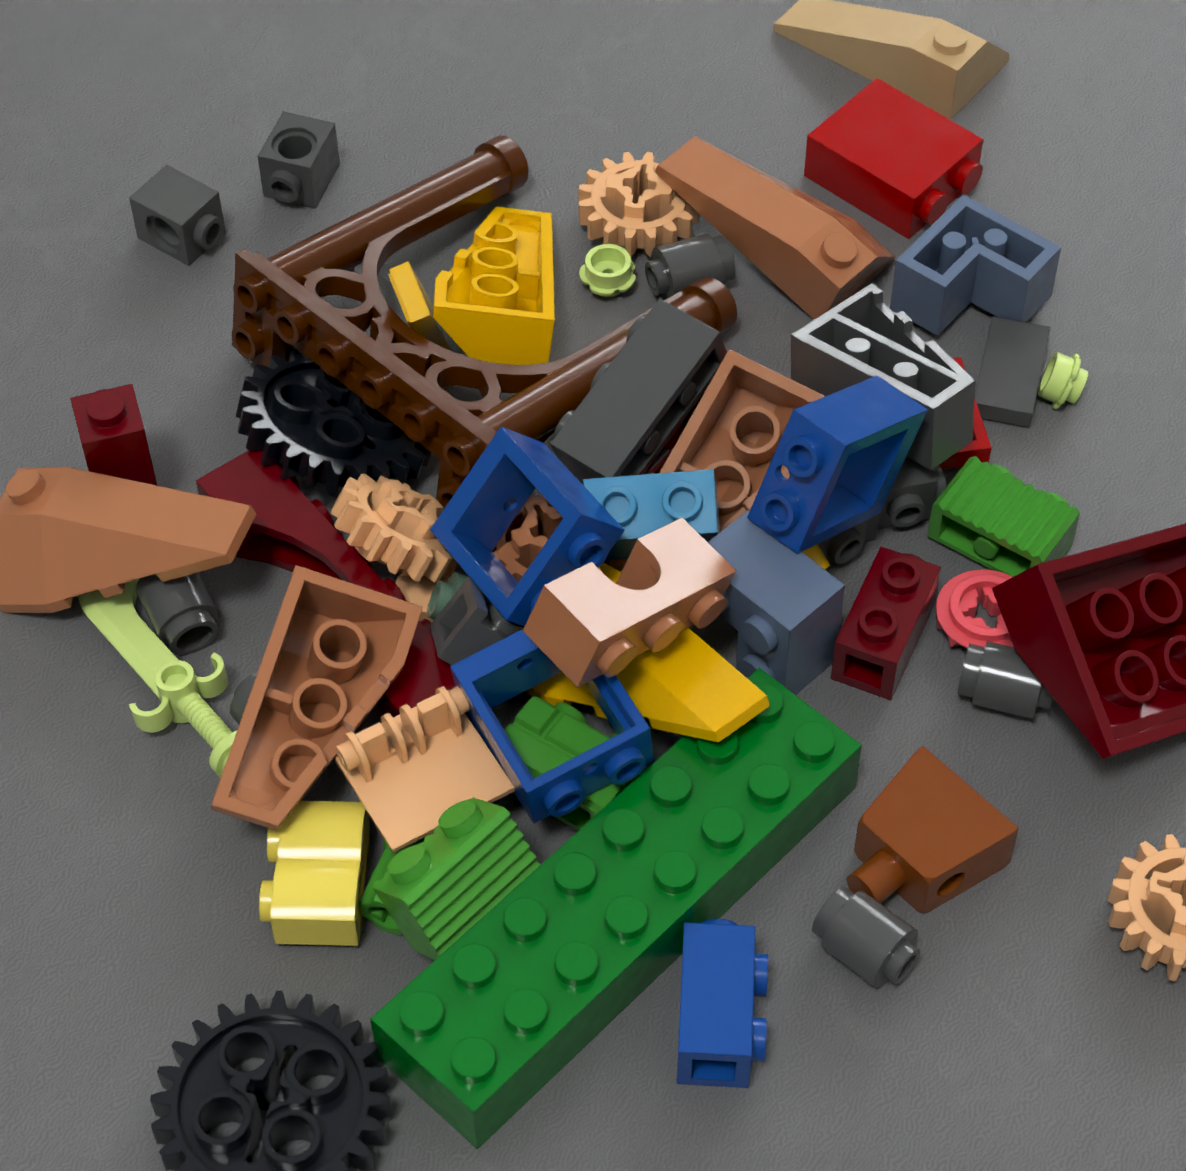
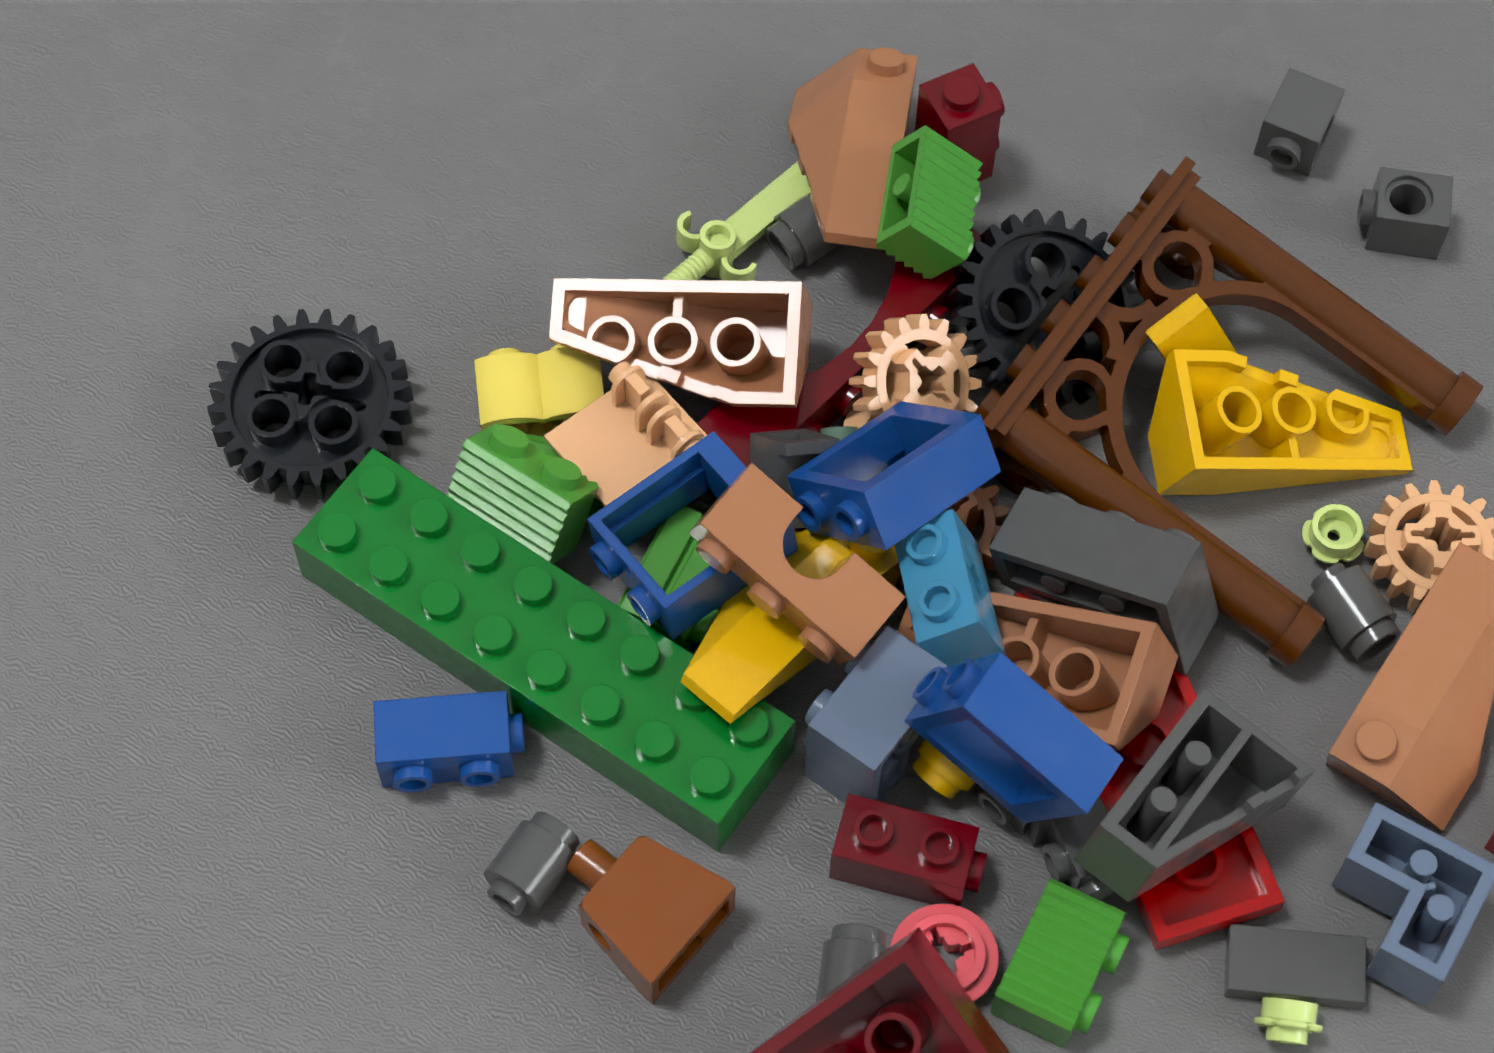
camera: 80 degrees right, 10 degrees up
(216, 465) = (929, 203): none -> bright green brick

